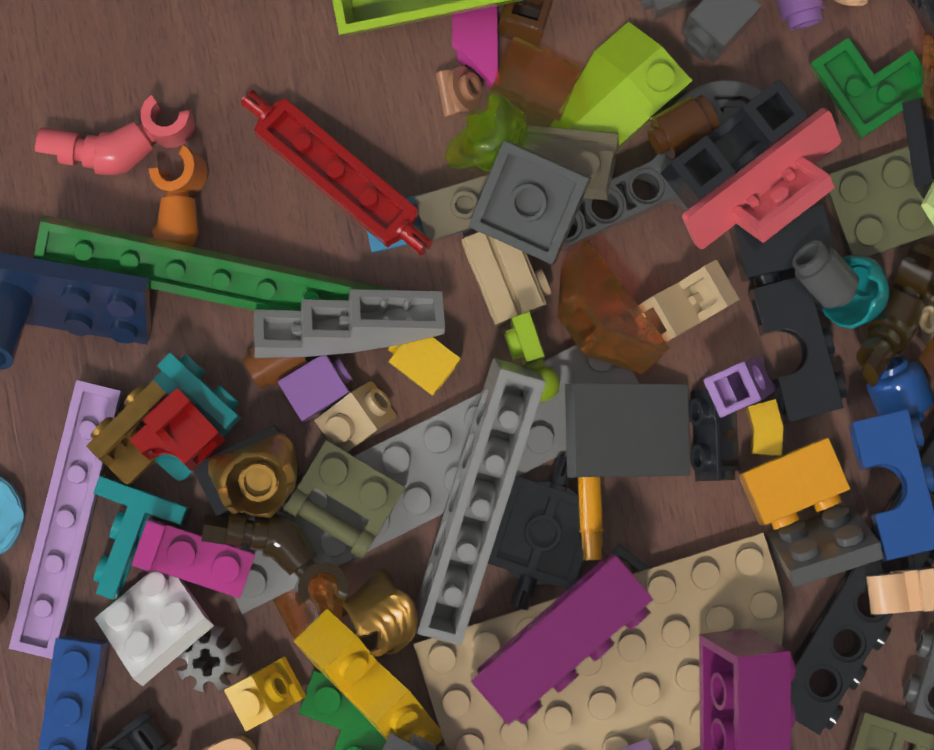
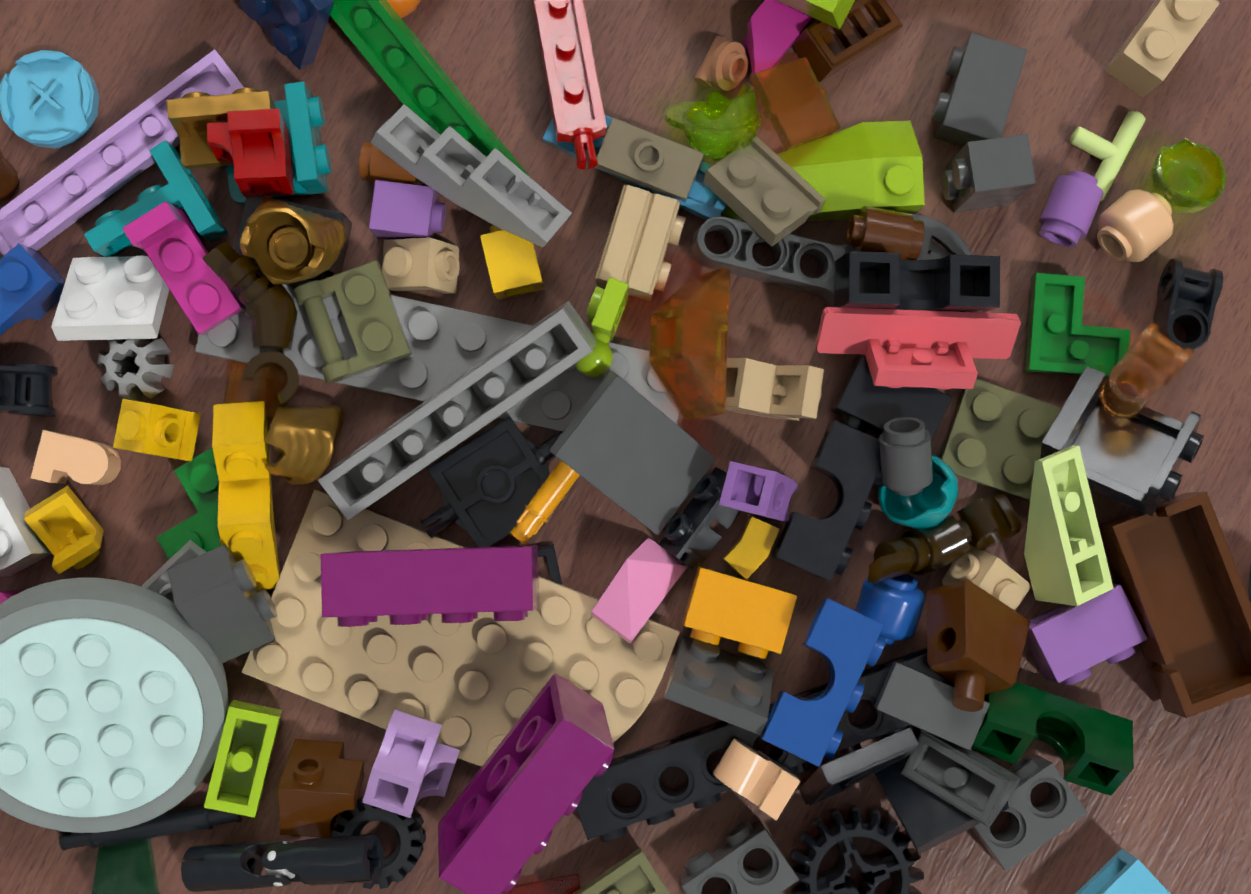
camera: 35 degrees right, 0 degrees up
(529, 202) = (704, 193): dark grey plate -> none
(709, 526) = (638, 589): none -> bright pink slope

